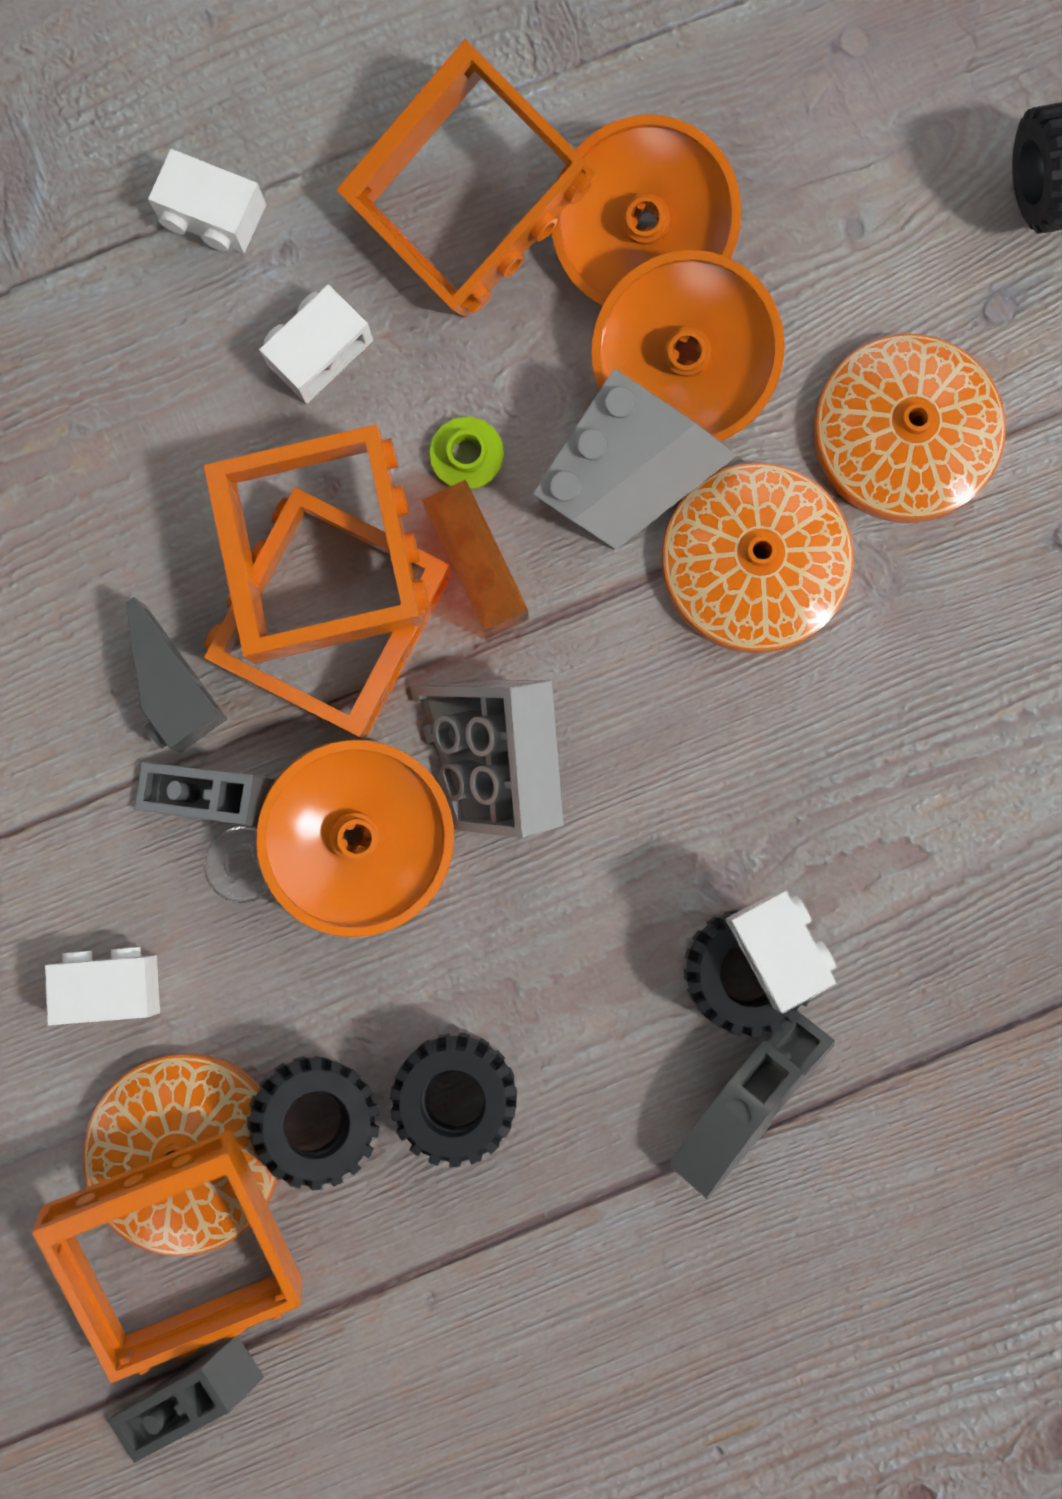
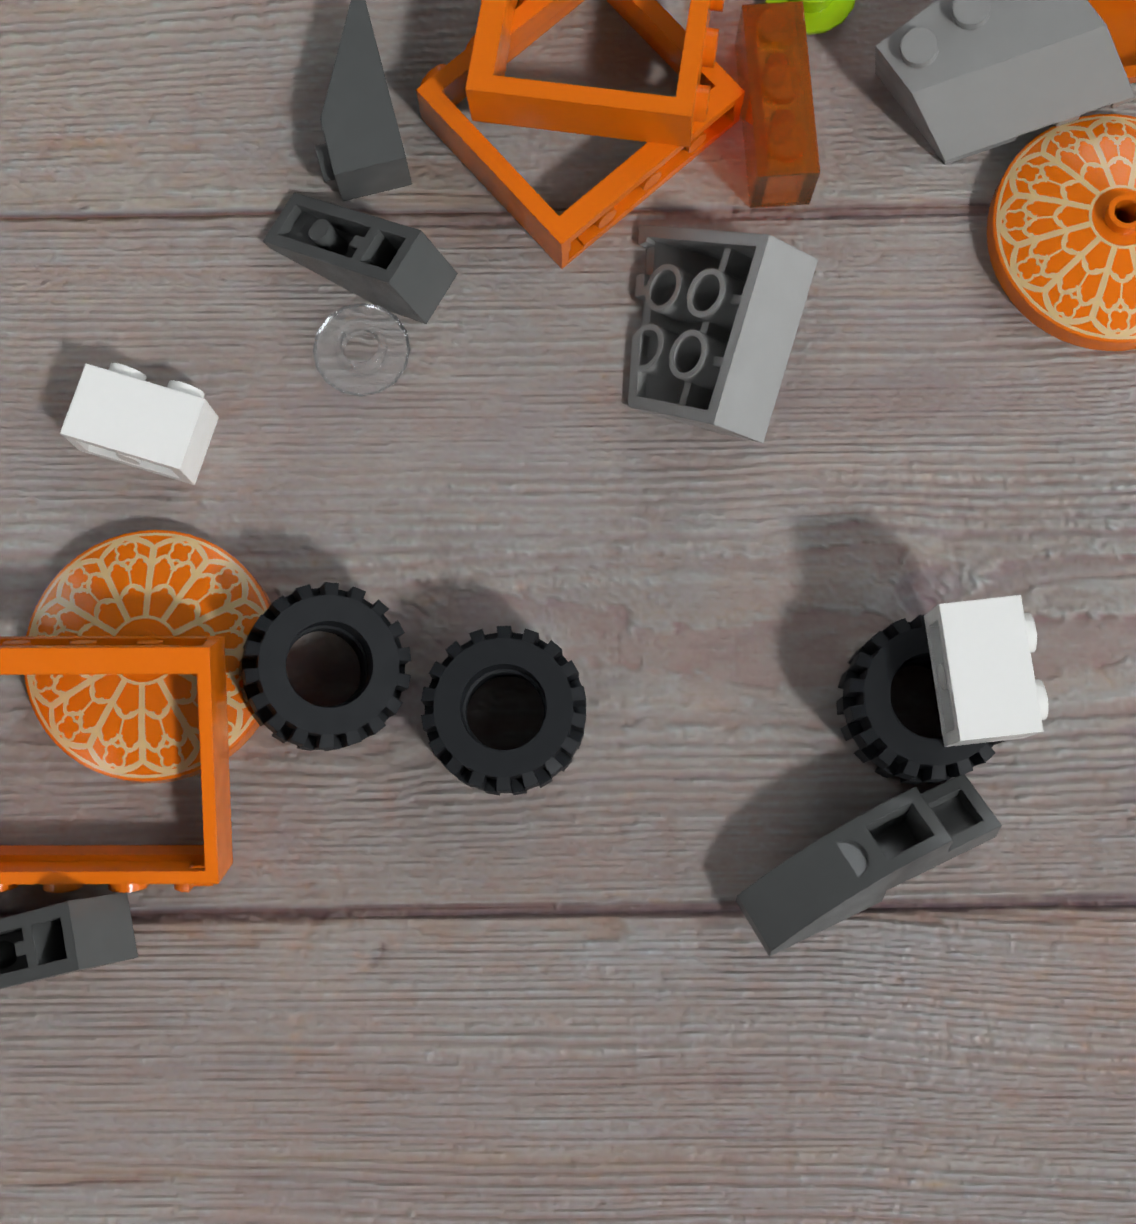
camera: 20 degrees right, 5 degrees down
(361, 884) = (544, 311): orange dish -> none

